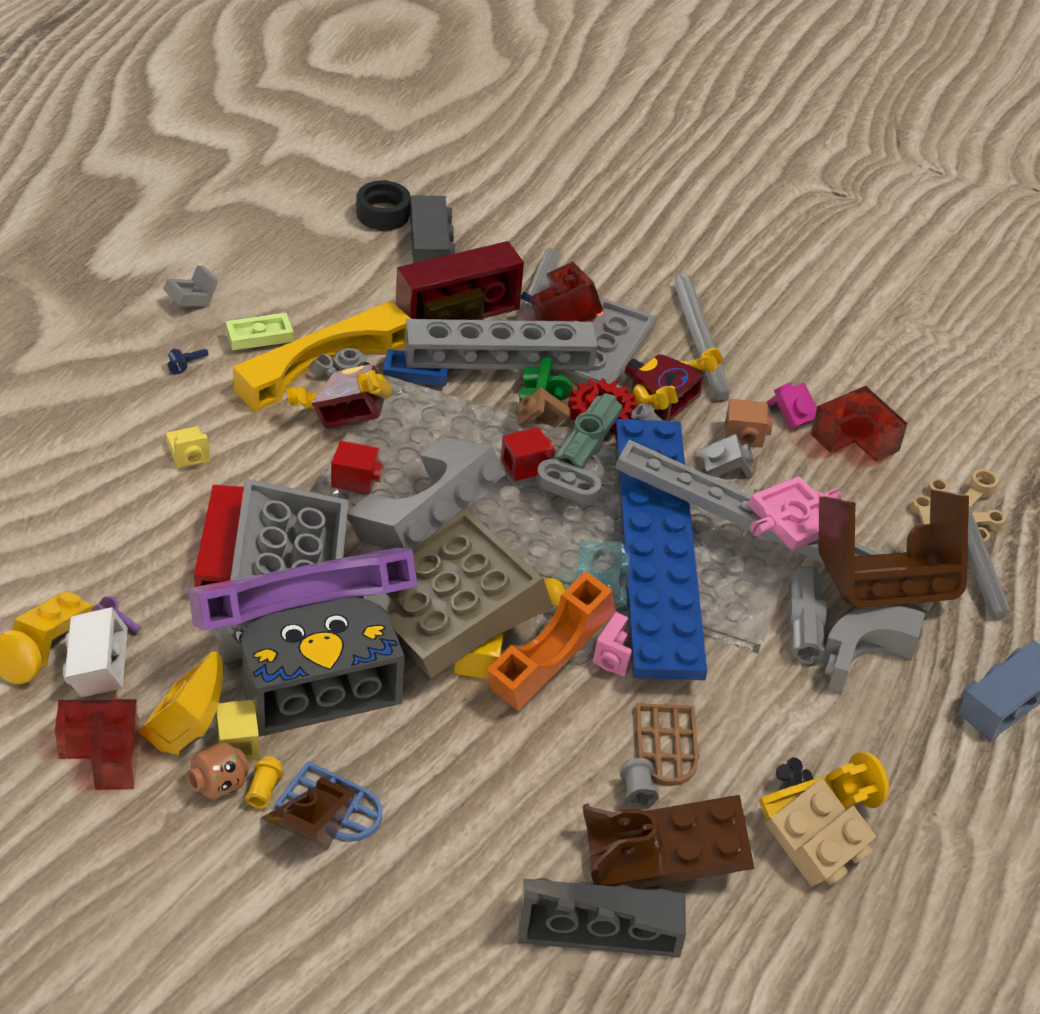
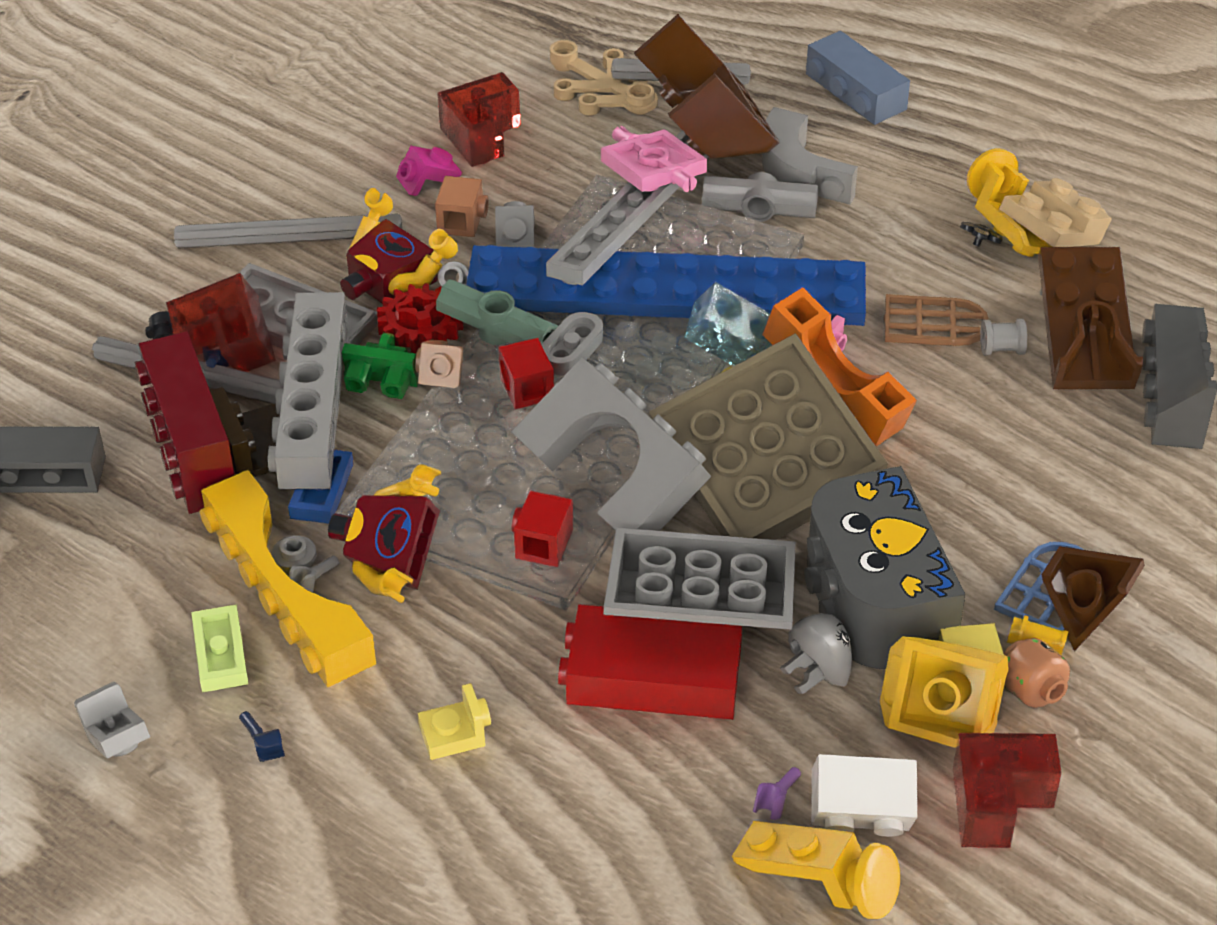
camera: 80 degrees left, 0 degrees up
(267, 593) = (846, 608): medium lavender arch -> none

